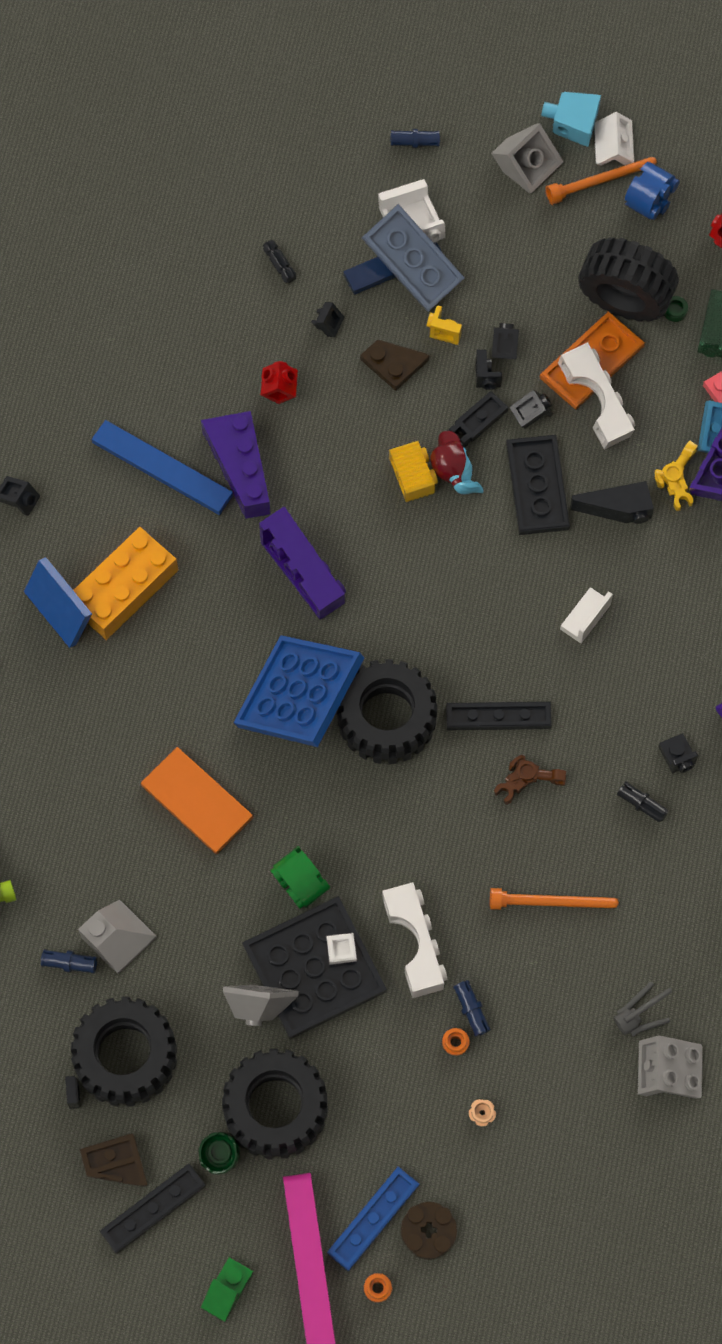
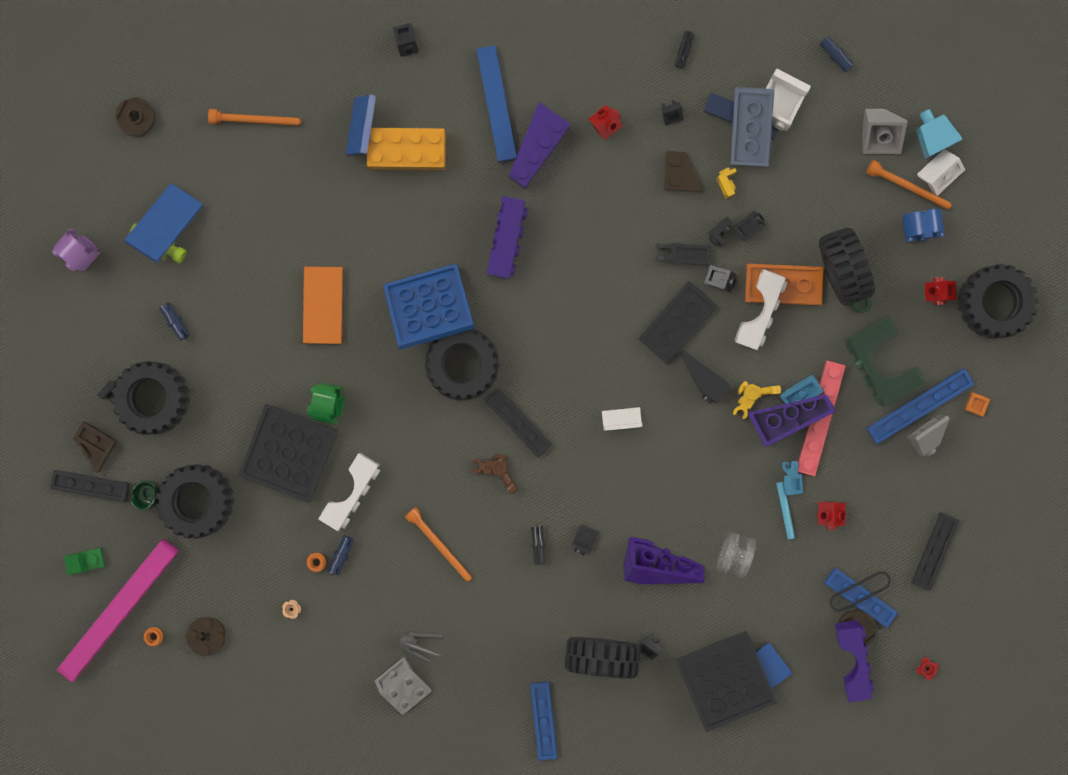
camera: 45 degrees right, 20 degrees up
(116, 935) = (211, 333): light grey slope -> none
(257, 1002) = (239, 442): light grey slope -> none
(341, 948) = (308, 459): white tile -> none
(373, 1219) = (186, 602): blue tile -> none
(412, 471) = (620, 246): yellow brick -> none
(453, 465) = (643, 265): dark red hair -> none

